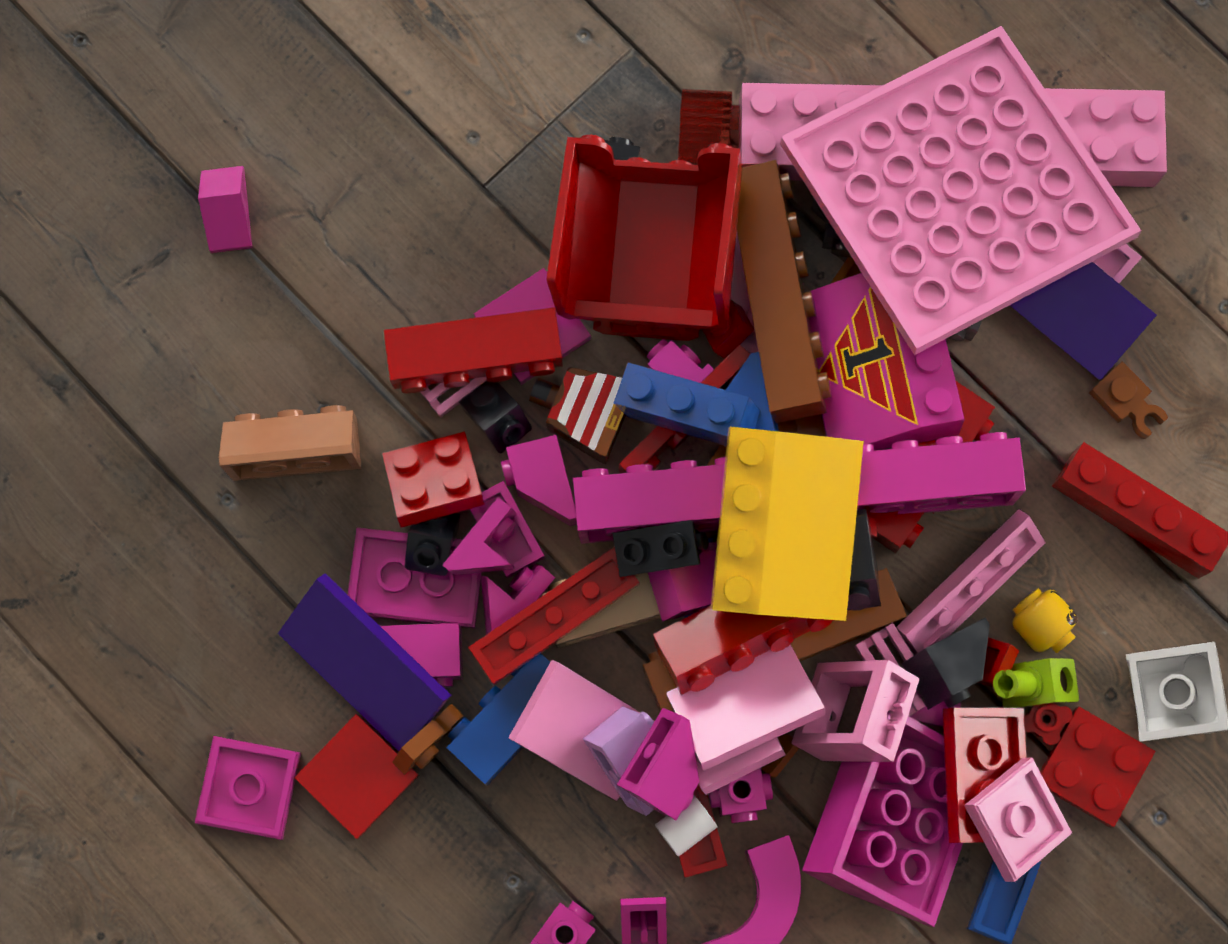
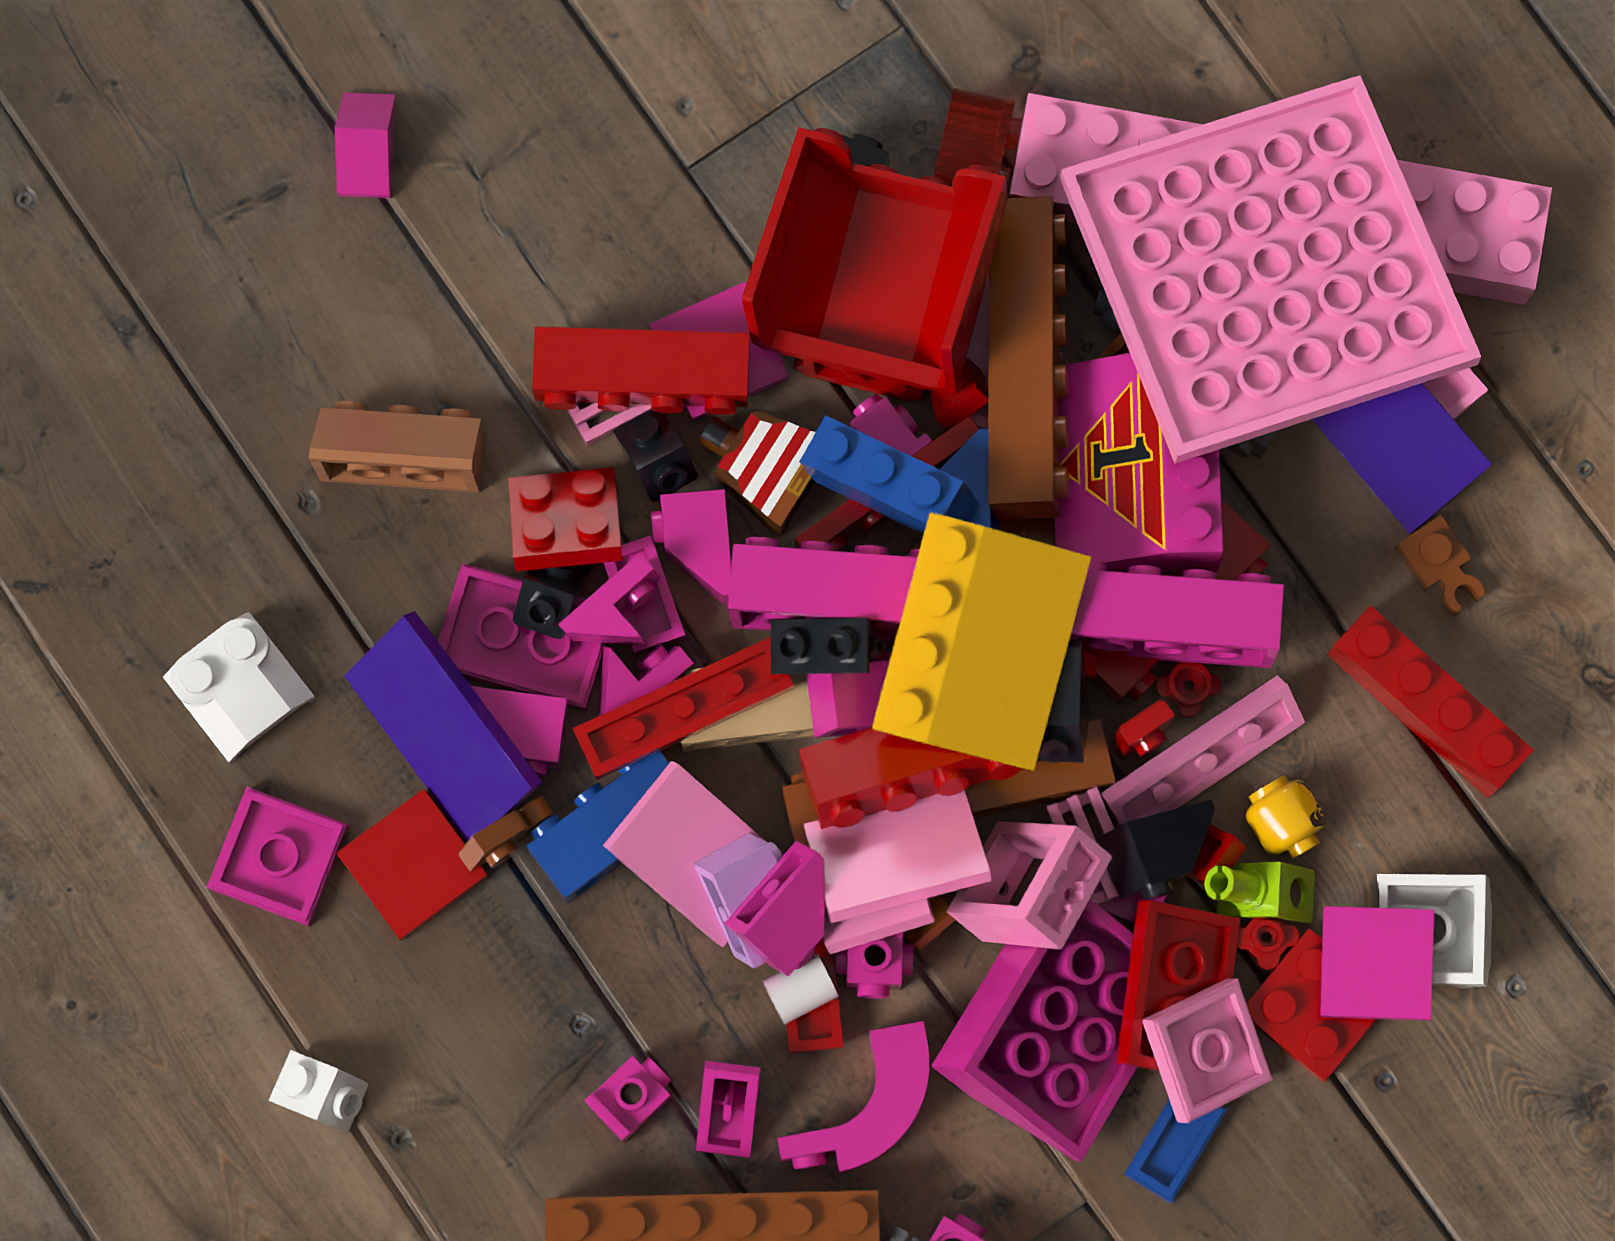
camera: 10 degrees right, 0 degrees up
(193, 655) = (237, 685): none -> white slope
(923, 573) = (1143, 731): none -> red plate
(950, 541) = (1188, 700): none -> red plate
(1141, 726) = (1377, 963): none -> dark pink tile

